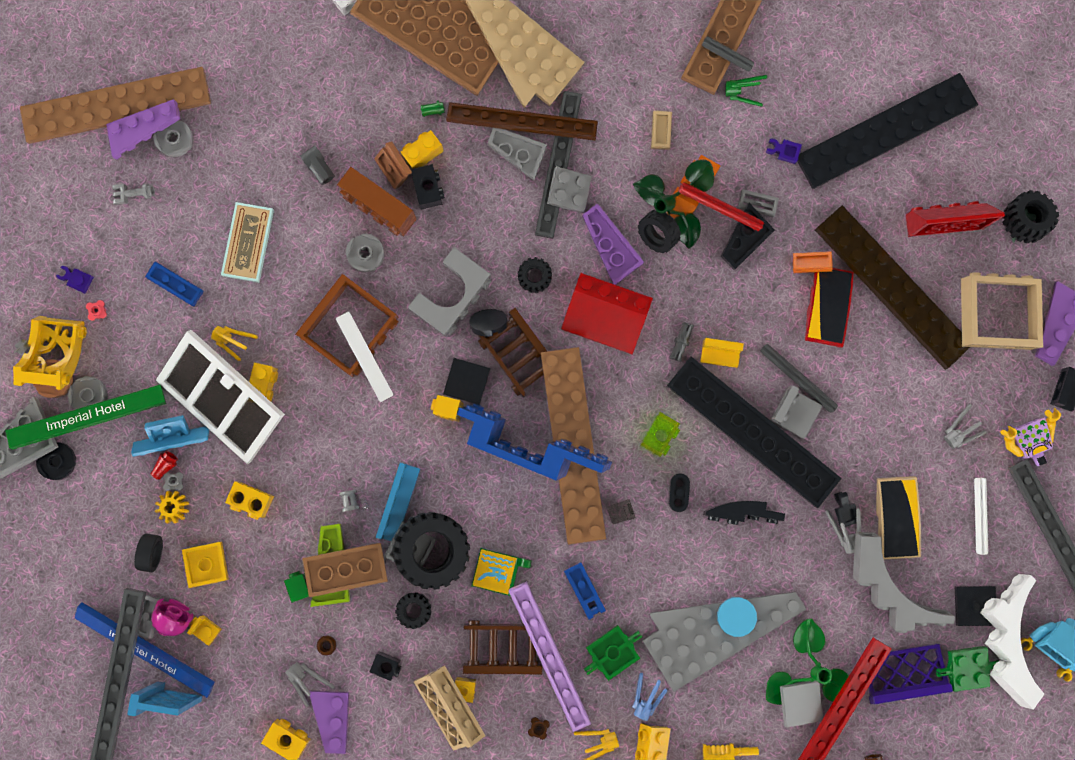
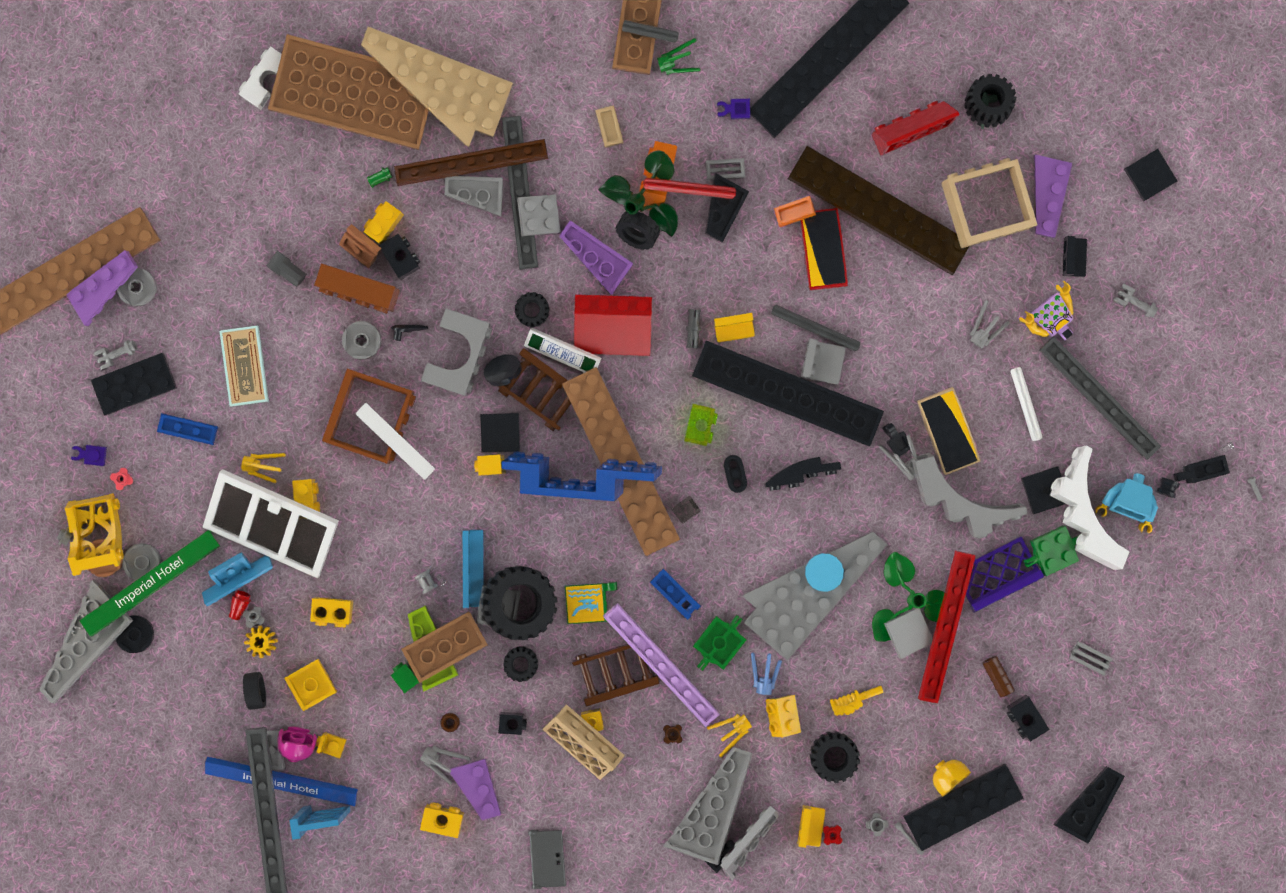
camera: 20 degrees left, 5 degrees up
(139, 226) = (133, 384): none -> black plate
(410, 255) = (406, 328): none -> black bar
(549, 322) = (561, 351): none -> tile

